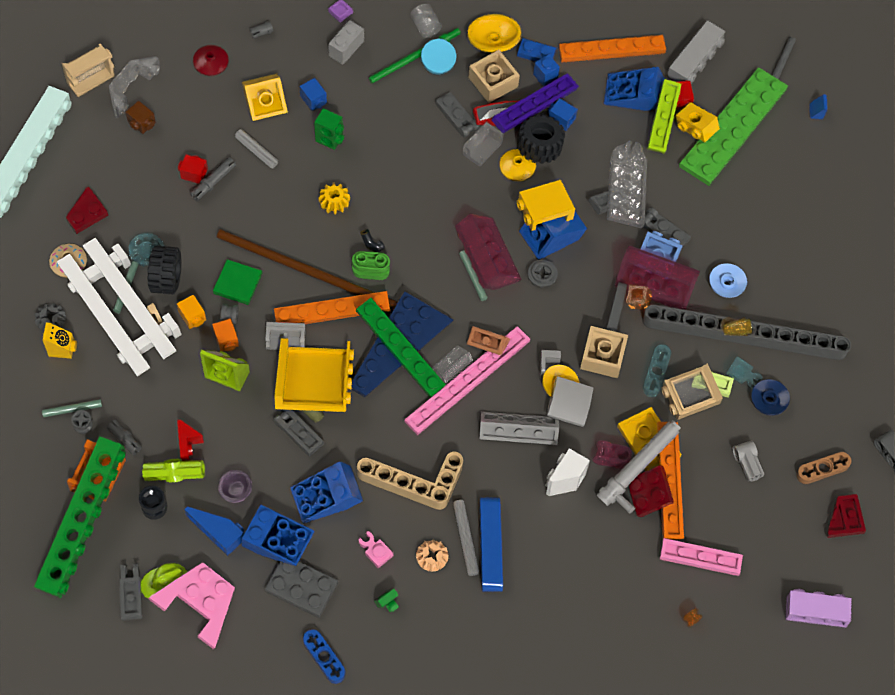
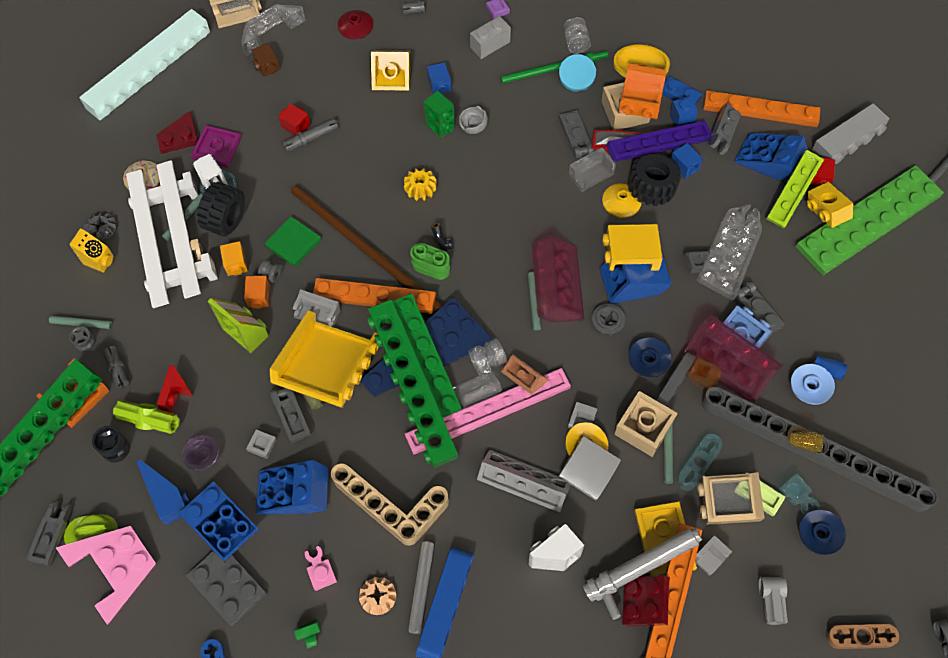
camera: 25 degrees right, 0 degrees up
(127, 213) = (218, 143): none -> magenta tile
(142, 241) = (209, 171): none -> white brick
(256, 148) = (364, 117): light grey axle -> none
(284, 464) = (261, 444): none -> light grey plate
(357, 321) = (387, 314): none -> green brick
(360, 125) = (473, 120): none -> light grey hair
(454, 331) = (487, 356): none -> clear wheel
(506, 61) = (642, 91): none -> orange panel
(586, 76) = (724, 128): none -> dark grey hinge
(591, 289) = (652, 349): none -> dark blue dish
(611, 454) = (615, 542): clear pink piece -> none
(630, 375) = (668, 457): none -> sand green bar
(691, 441) = (712, 555): none -> light grey panel
(741, 261) = (834, 367): none -> blue cone

